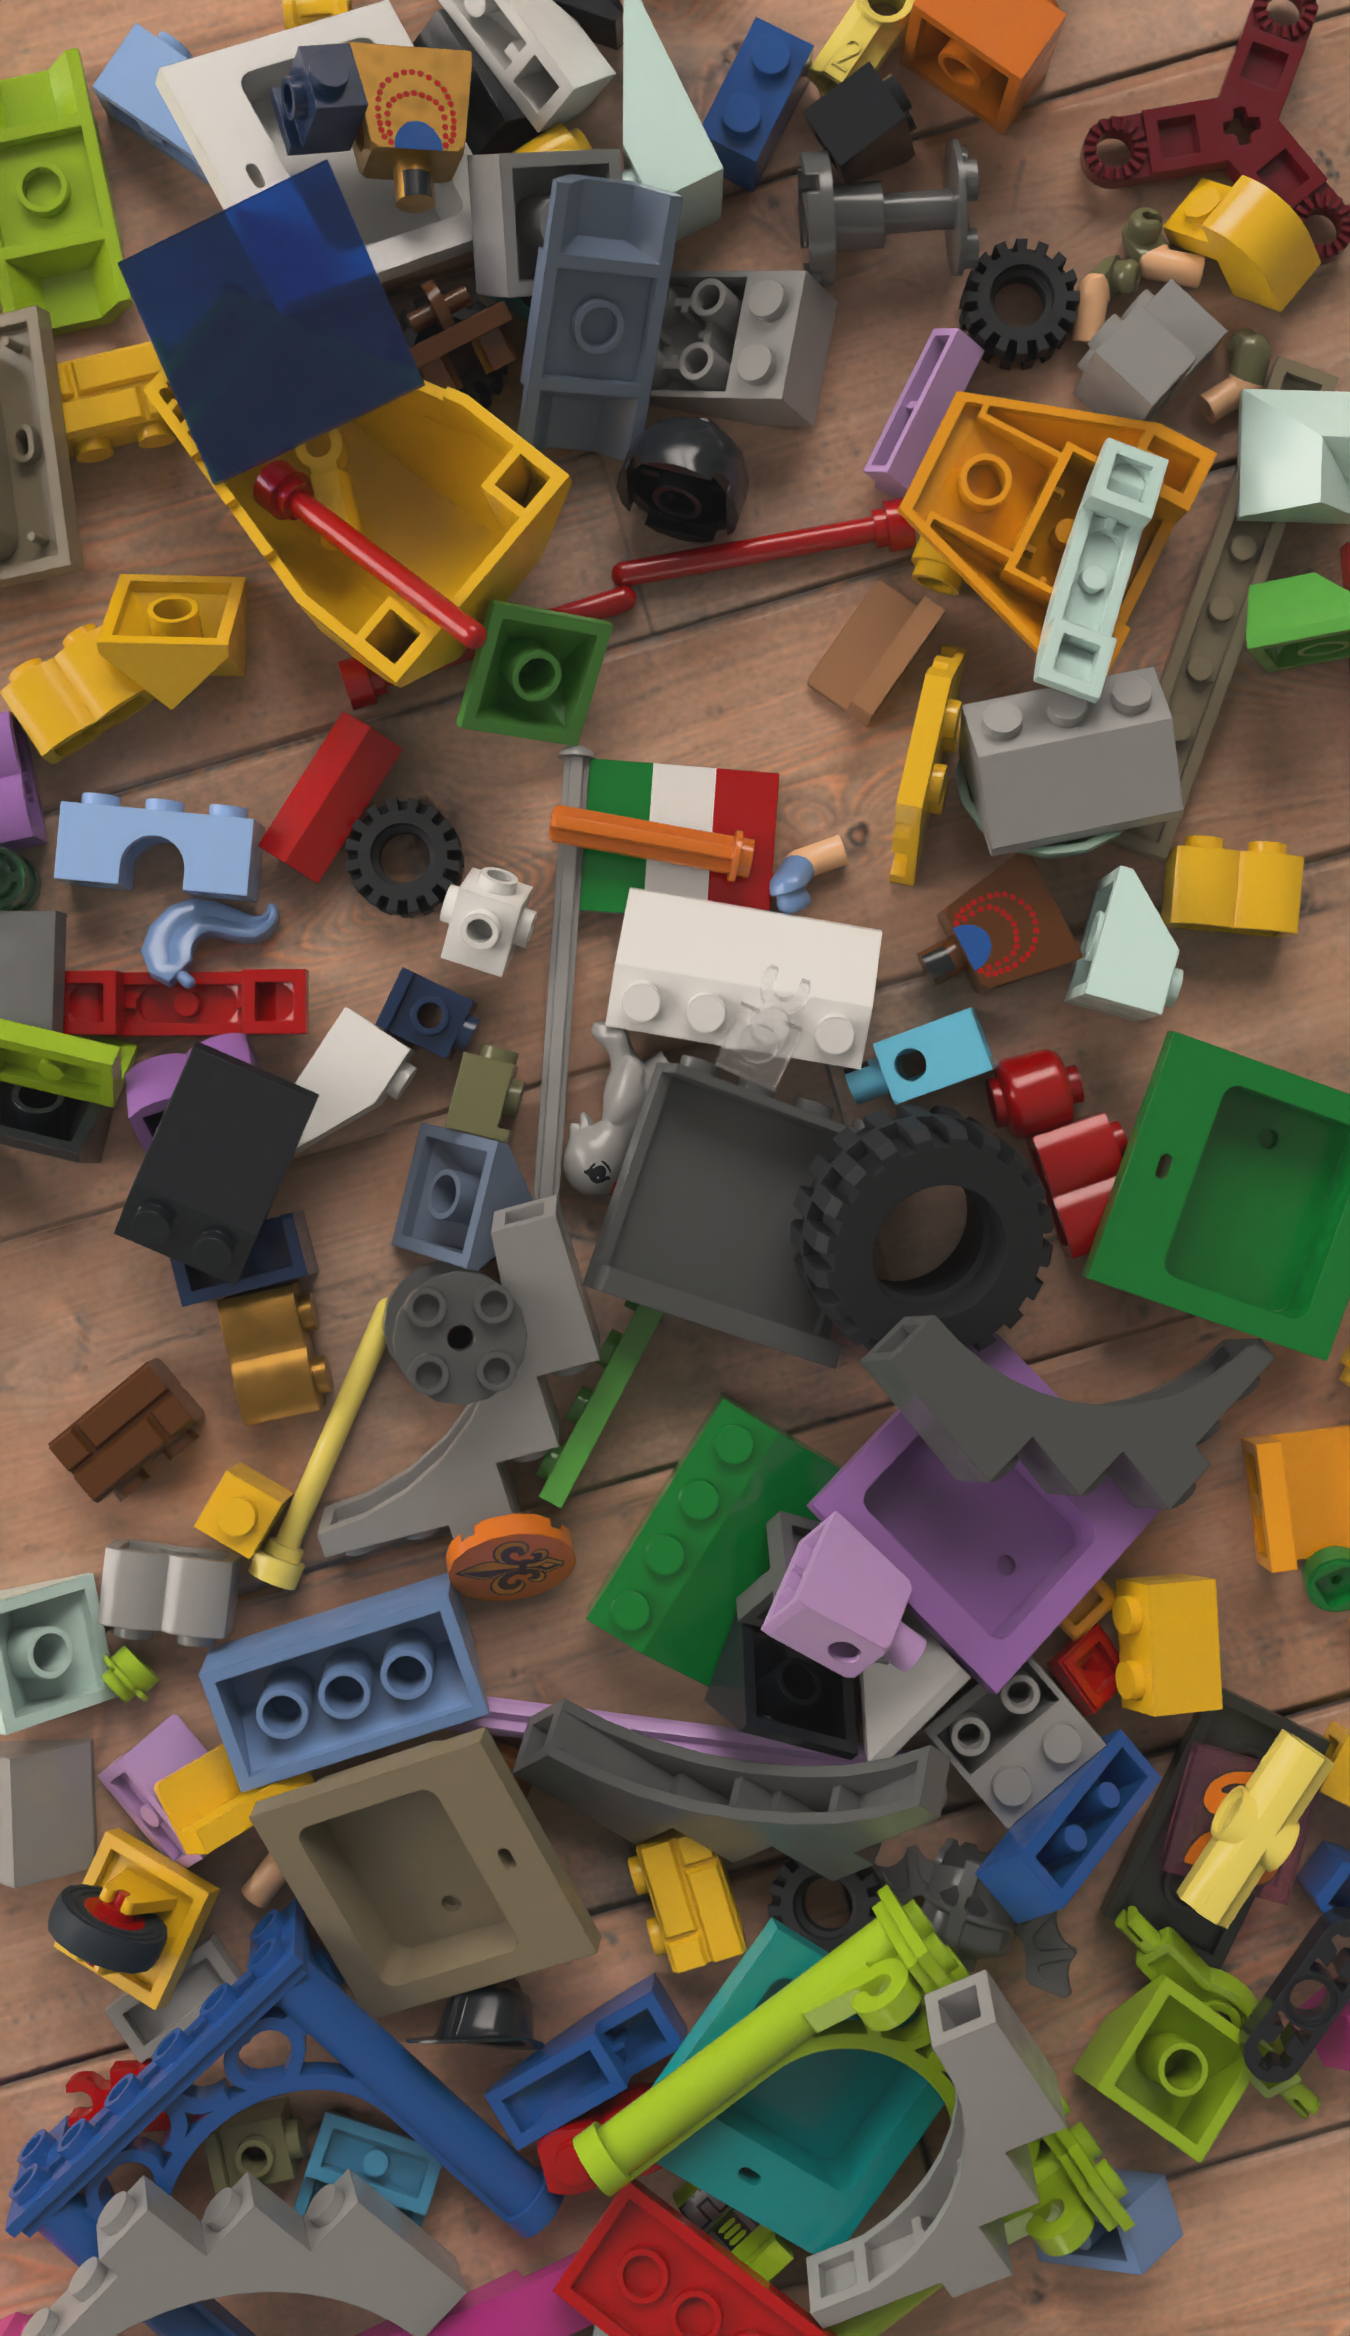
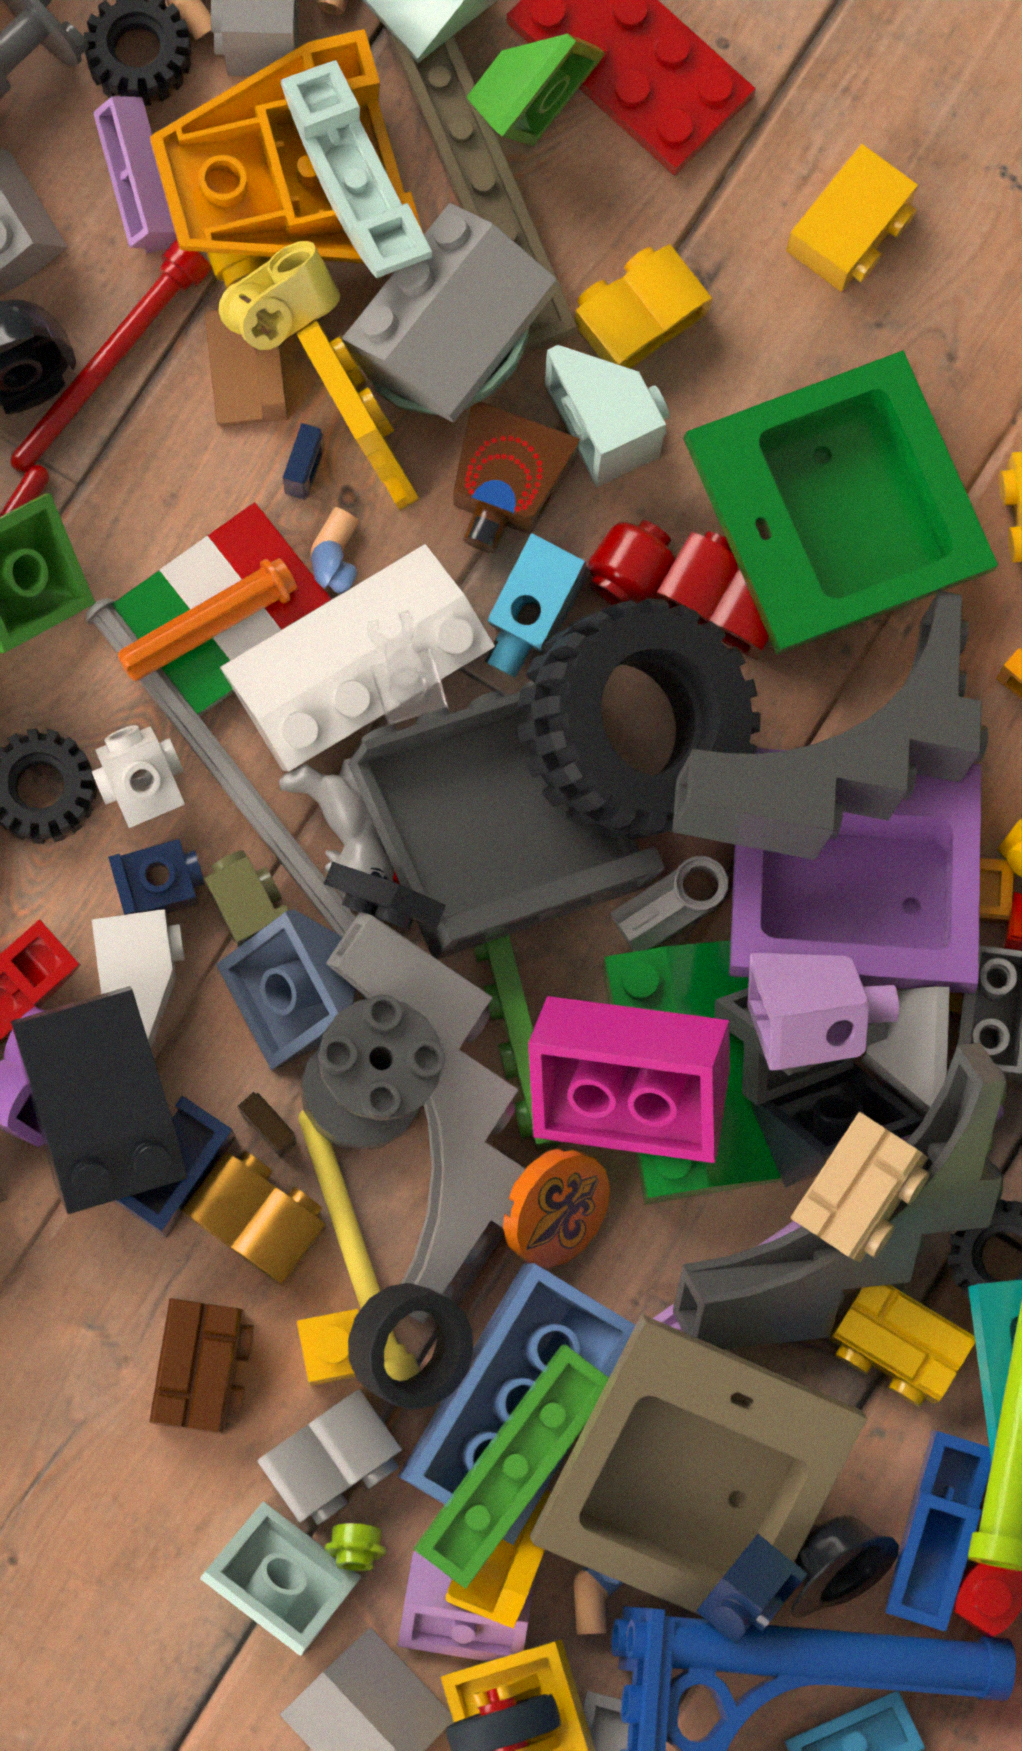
camera: 45 degrees left, 10 degrees down
(288, 1741) = (512, 1467): none -> bright green plate
(302, 1609) = (449, 1358): none -> black tyre
(347, 1289) = (268, 1123): none -> dark brown tile
(384, 2002) = (751, 1590): none -> dark blue brick
(581, 1194) = (383, 898): none -> black plate
(651, 1520) = (629, 1078): none -> dark pink slope
(750, 1784) = (862, 1189): none -> tan brick
(810, 1394) = (666, 907): none -> light grey piece
(846, 776) = (303, 461): none -> dark blue tile
(947, 628) = (283, 296): none -> light yellow piece

